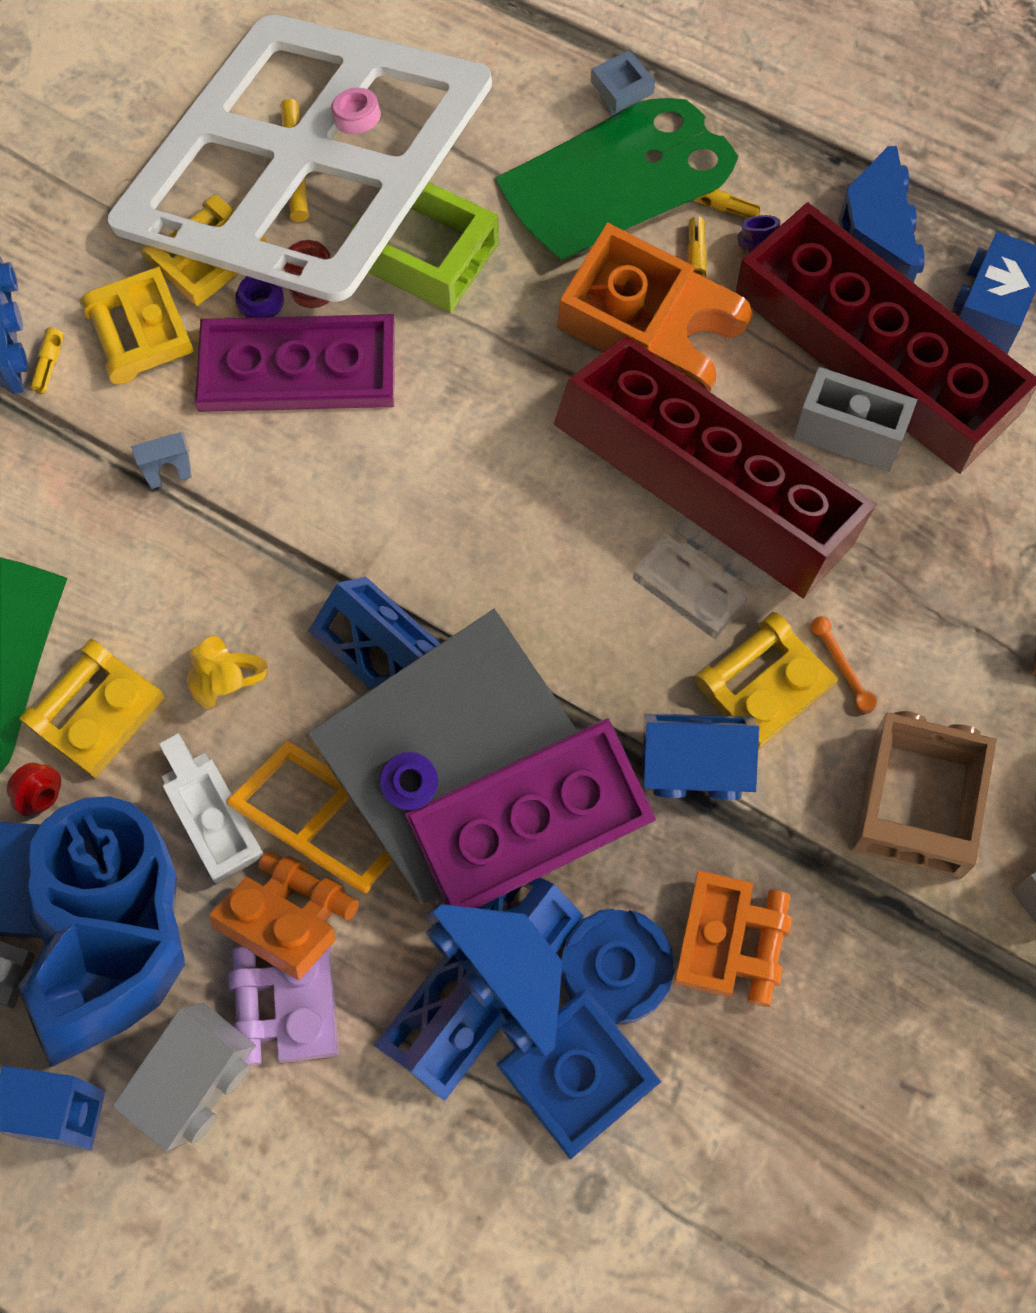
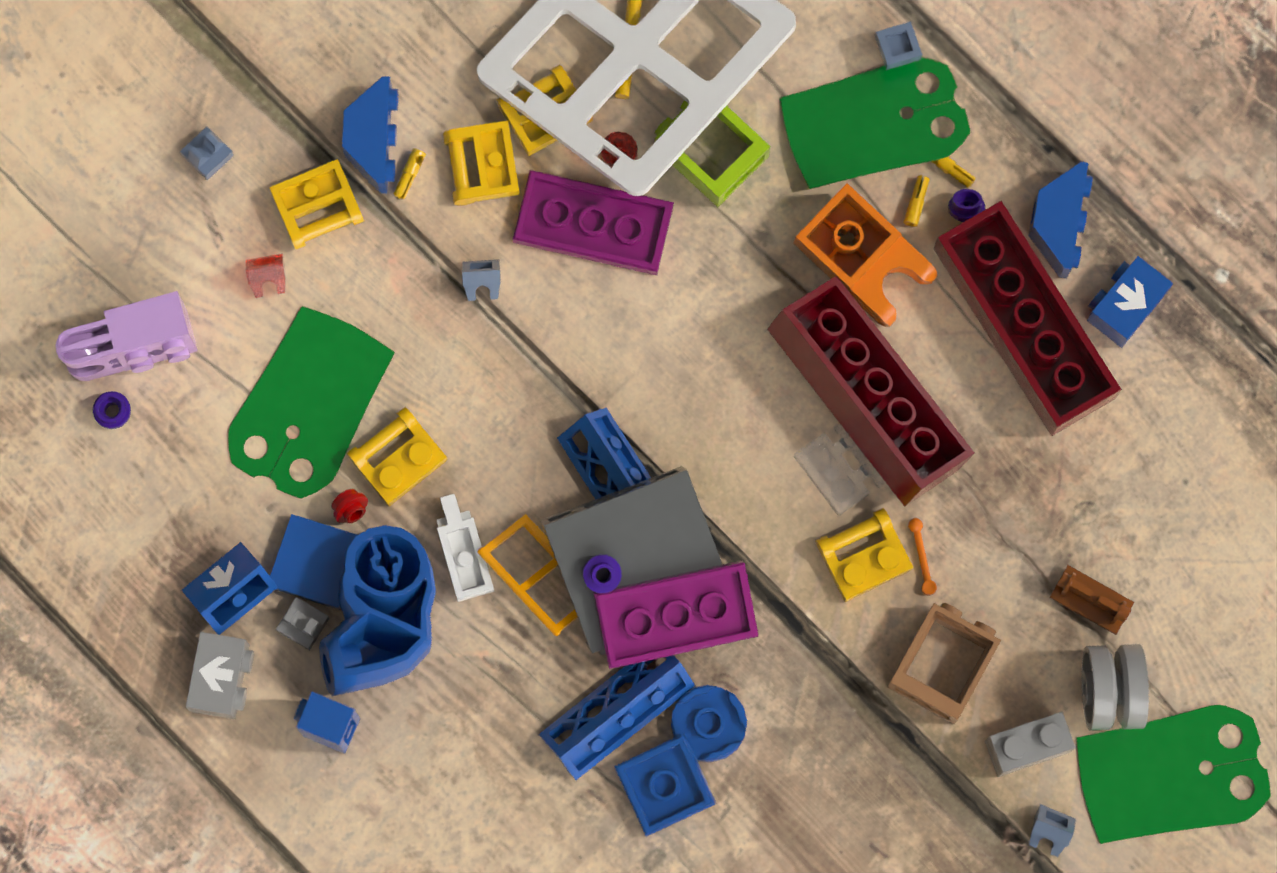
camera: 10 degrees right, 10 degrees up
(185, 1077) = (417, 724): light grey brick -> none
(218, 671) = (483, 462): yellow piece -> none
(253, 289) = (570, 172): dark purple plate -> none
(276, 928) = (492, 642): orange plate -> none
(303, 1008) = (499, 692): lavender plate -> none
(355, 110) = (684, 30): bright pink tile -> none
(506, 967) = (634, 708): blue slope -> none
(700, 754) = (801, 598): blue brick -> none
(715, 937) = (777, 720): orange plate -> none
(854, 418) = (984, 379): light grey brick -> none

